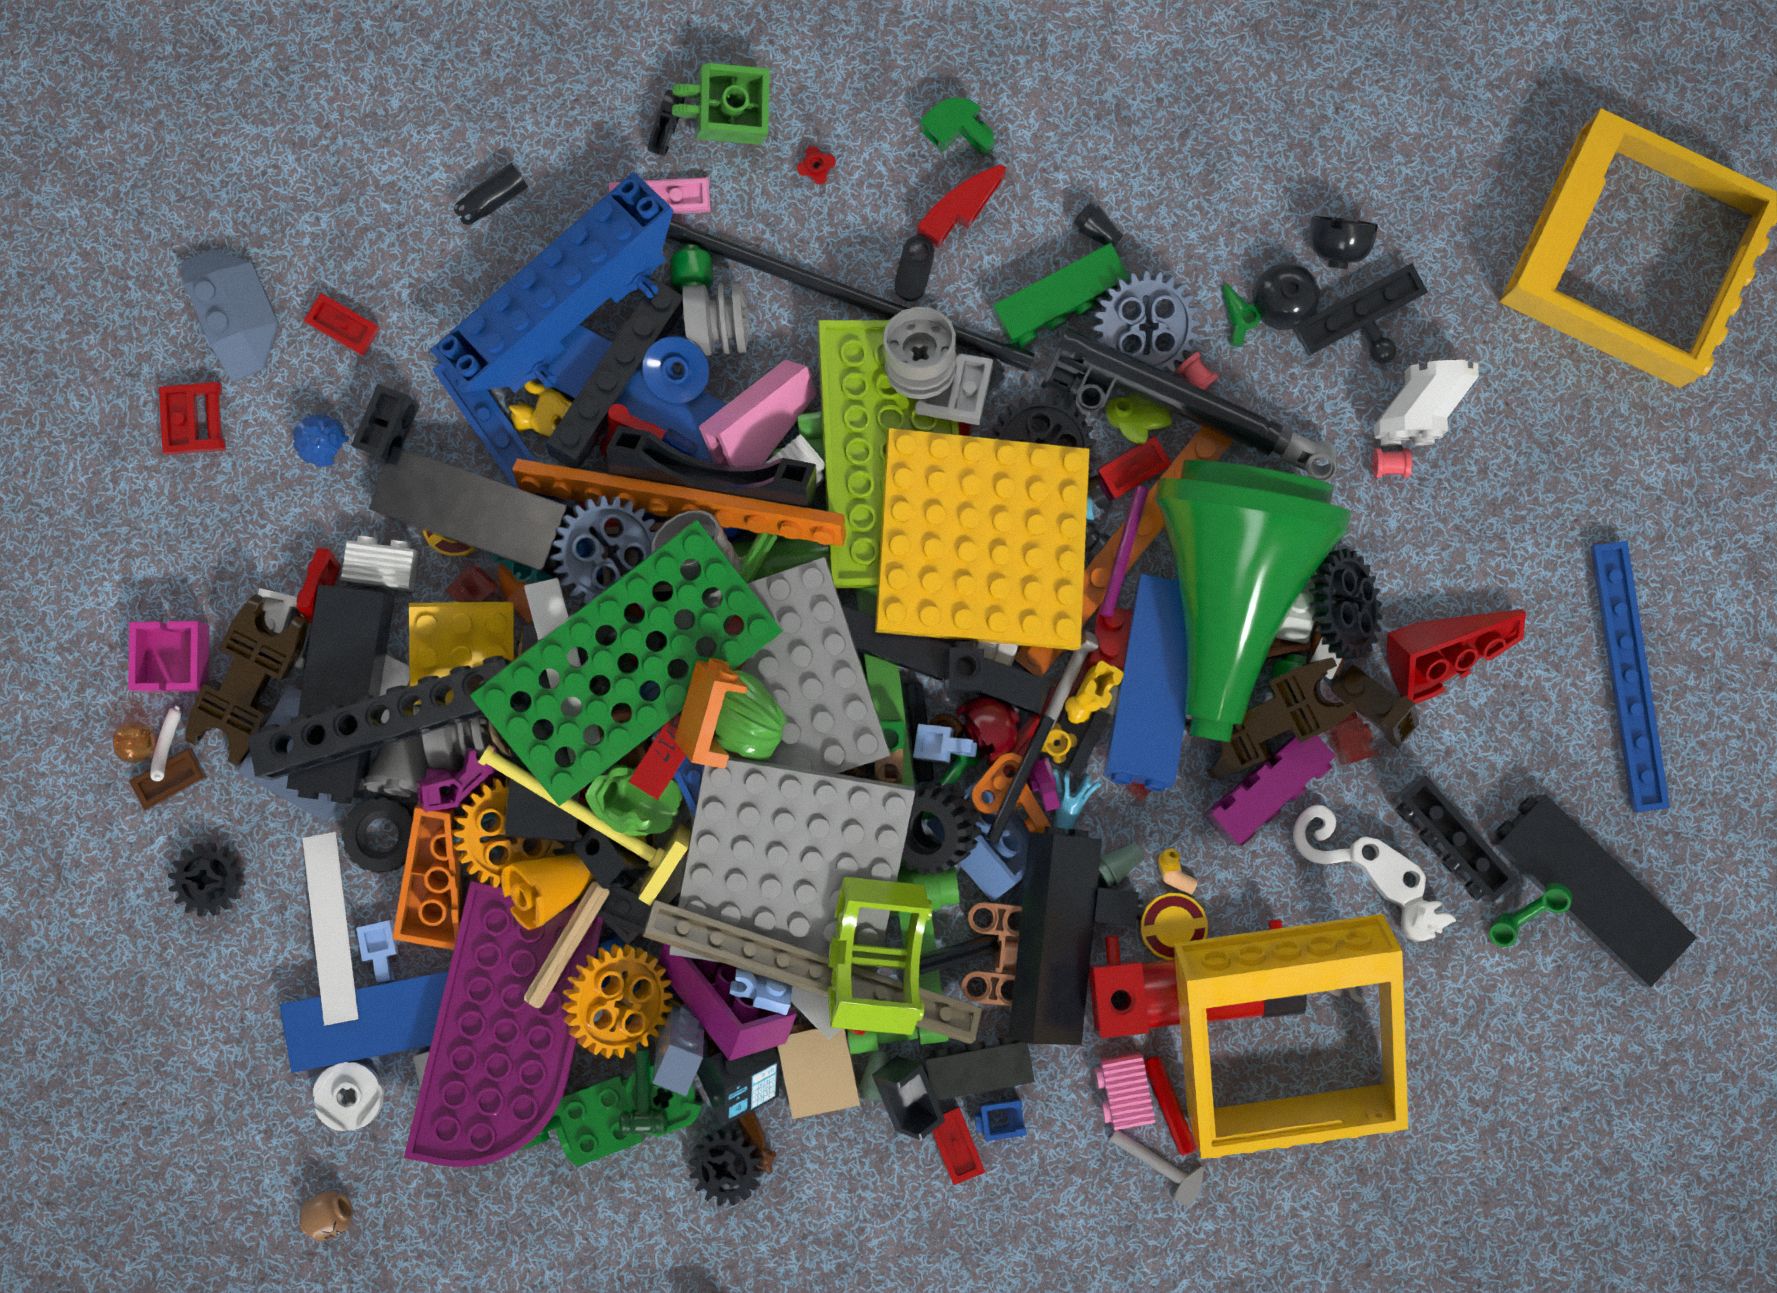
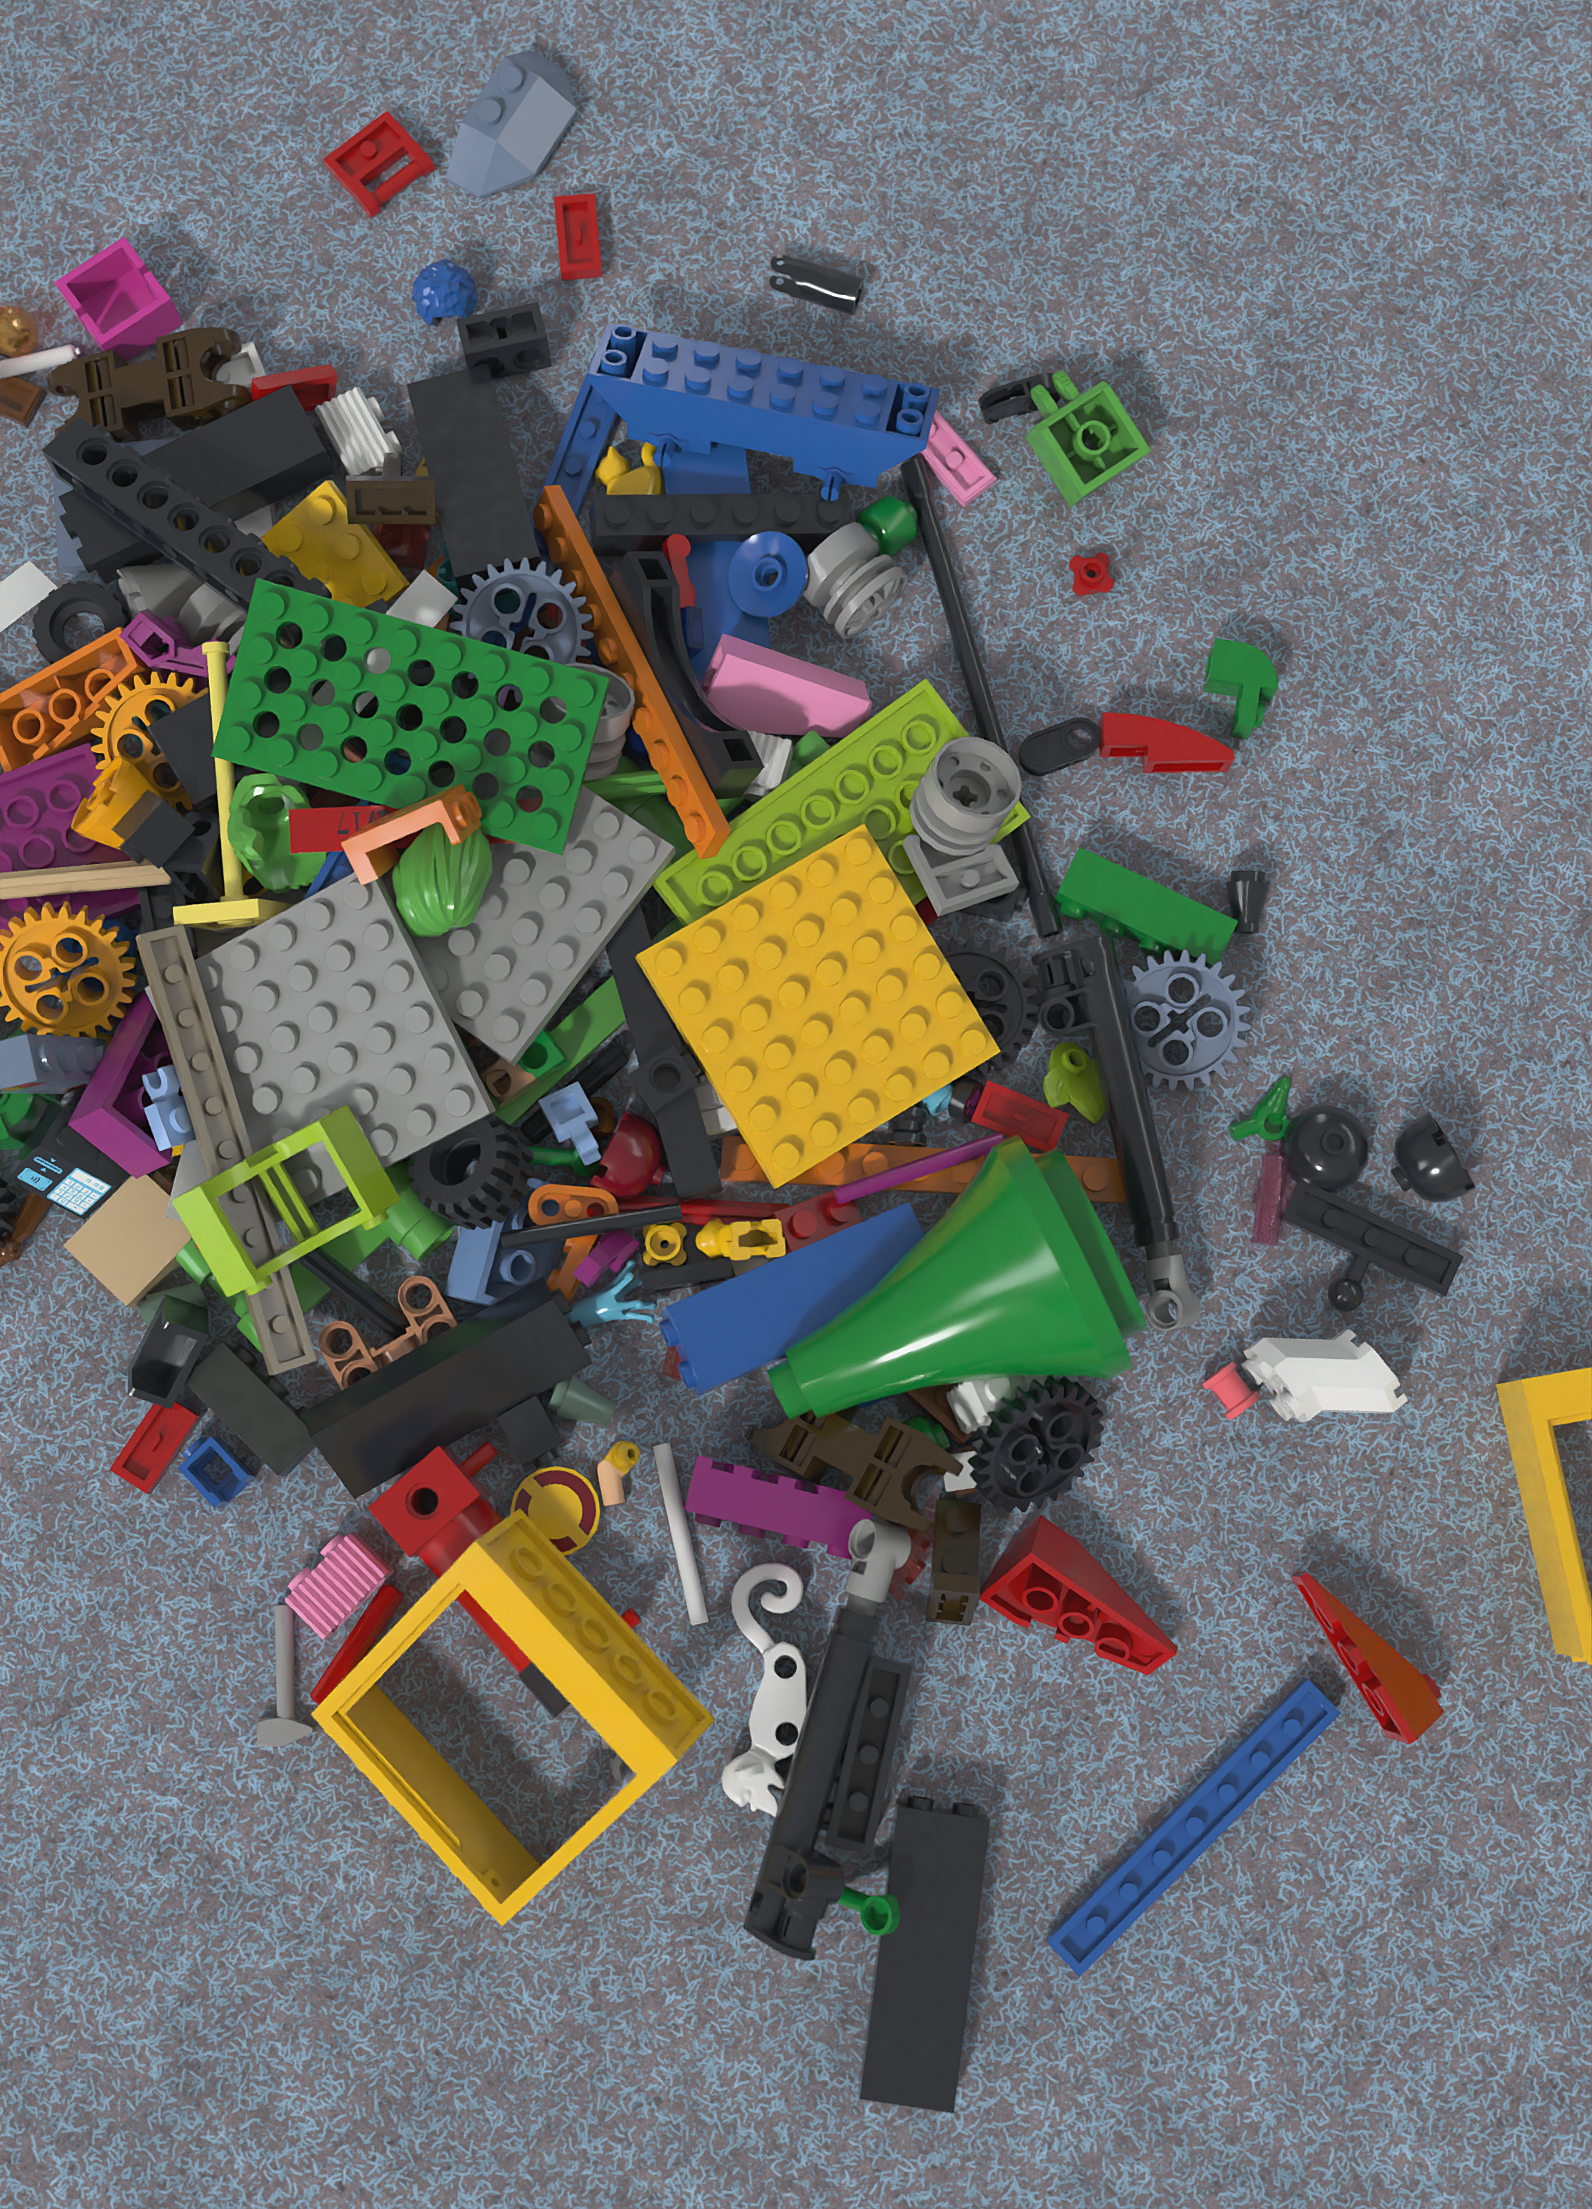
camera: 55 degrees right, 5 degrees down
(452, 574) = (390, 496): none -> dark brown bracket
(575, 878) = (152, 830): none -> black brick
(1088, 644) = (788, 1195): light grey piece -> none
(1197, 372) = (1170, 1112): coral bush -> none
(1240, 859) = (680, 1534): none -> white bar
(1294, 353) = (1270, 1200): none -> clear pink pin
(1500, 935) = (794, 1877): none -> black piece
(1632, 499) = (1390, 1685): none -> red wedge

